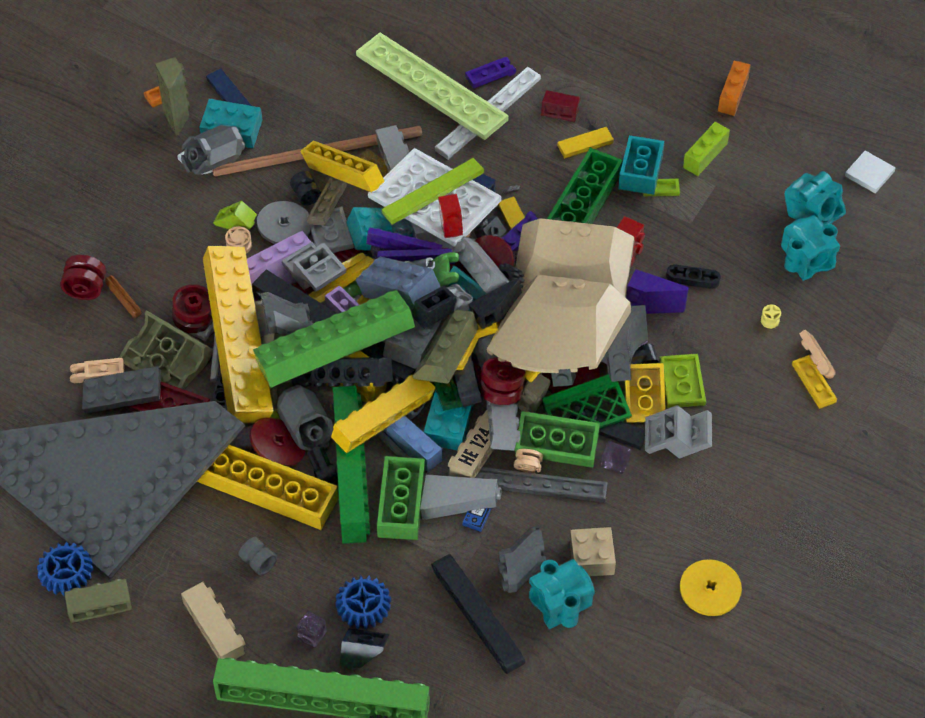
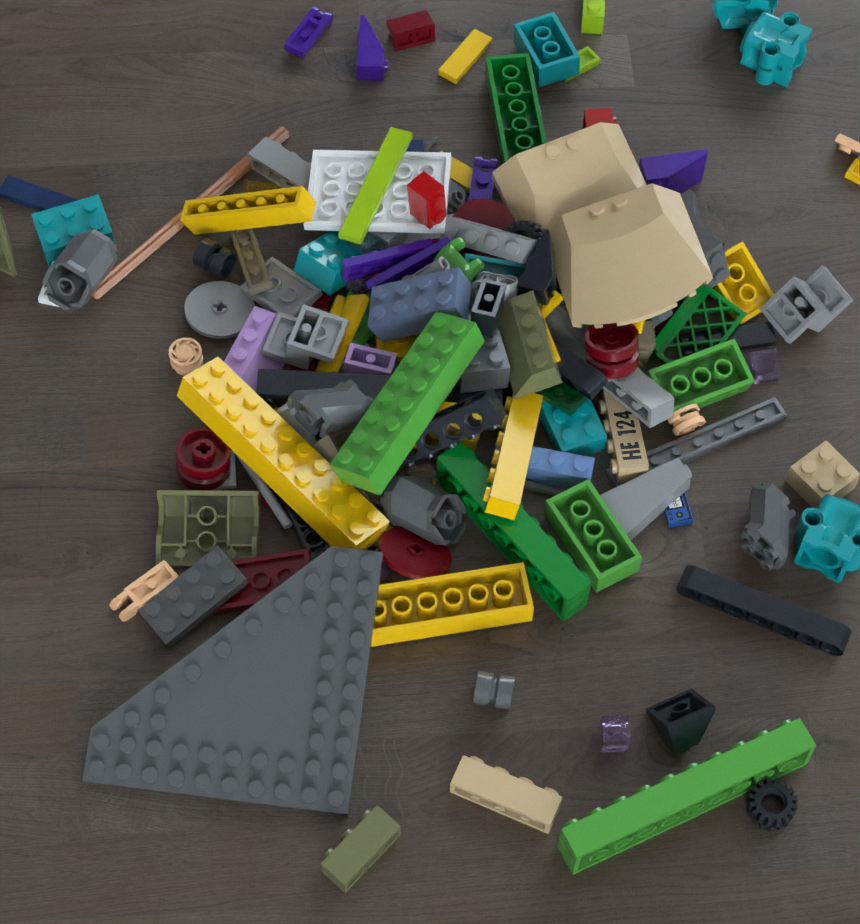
camera: 35 degrees left, 5 degrees up
(65, 576) = (304, 836): blue gear -> none
(83, 277) = (47, 494): dark red wheel -> none
(123, 296) = (104, 490): dark orange axle -> none
(235, 215) = (161, 331): lime slope -> none
(322, 467) = (482, 553): black piece -> none
(378, 601) = (631, 655): blue gear -> none
(432, 86) = (260, 76): yellowish green plate -> none
(501, 100) = (339, 78): white tile -> none
(518, 106) = (370, 54): none -> dark purple slope
(683, 381) = (766, 249): lime tile -> none
(707, 273) = (690, 131): black beam -> none
(774, 313) = (790, 138): light yellow wheel -> none

